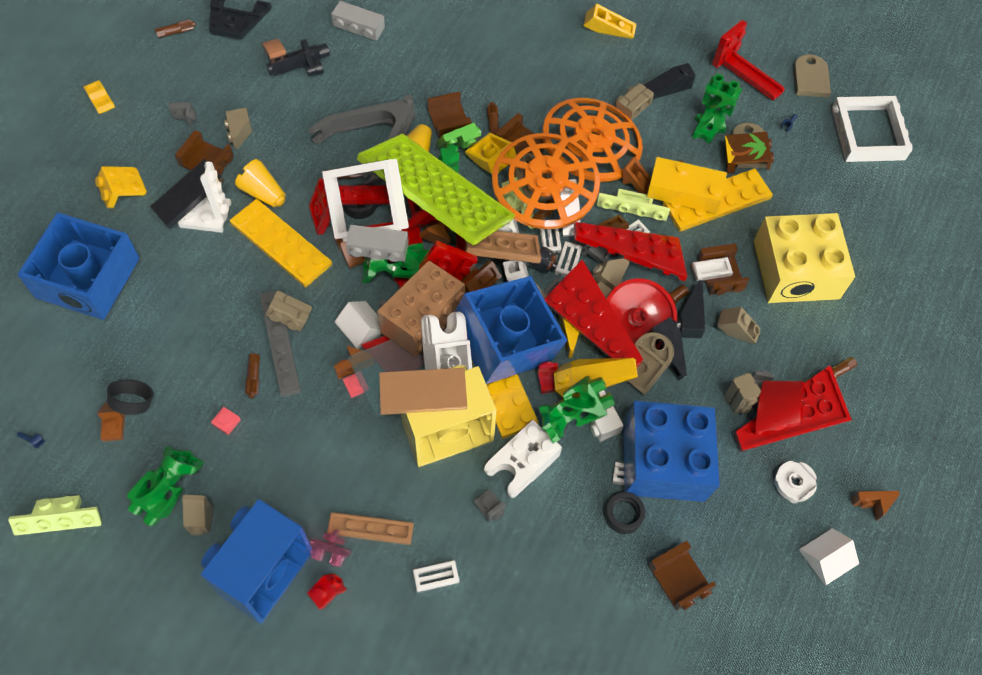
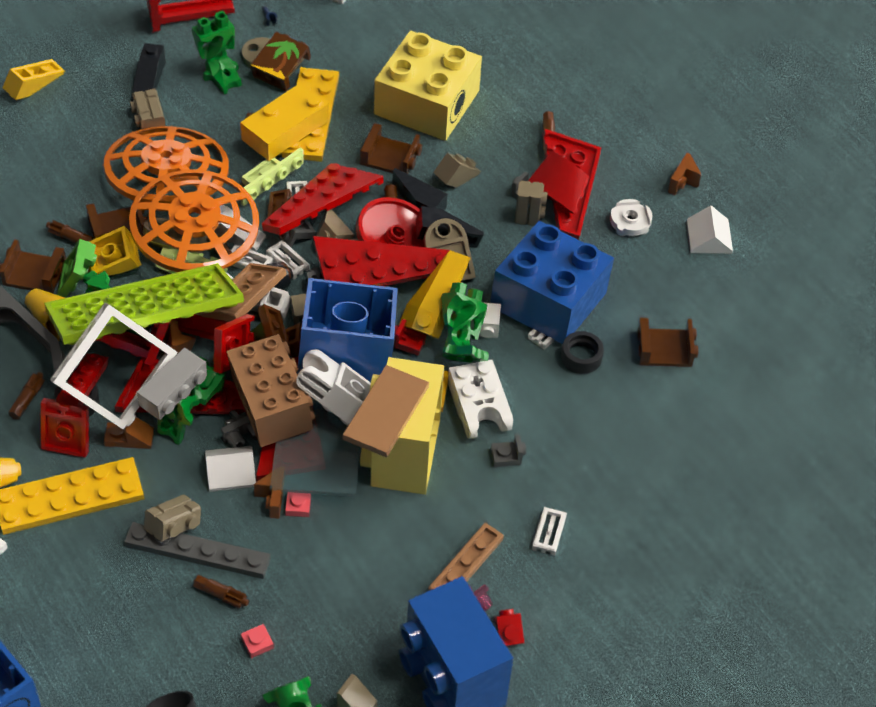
camera: 60 degrees left, 10 degrees down
(637, 175) = (240, 154): dark orange slope -> none
(712, 269) = (383, 158): white tile -> none

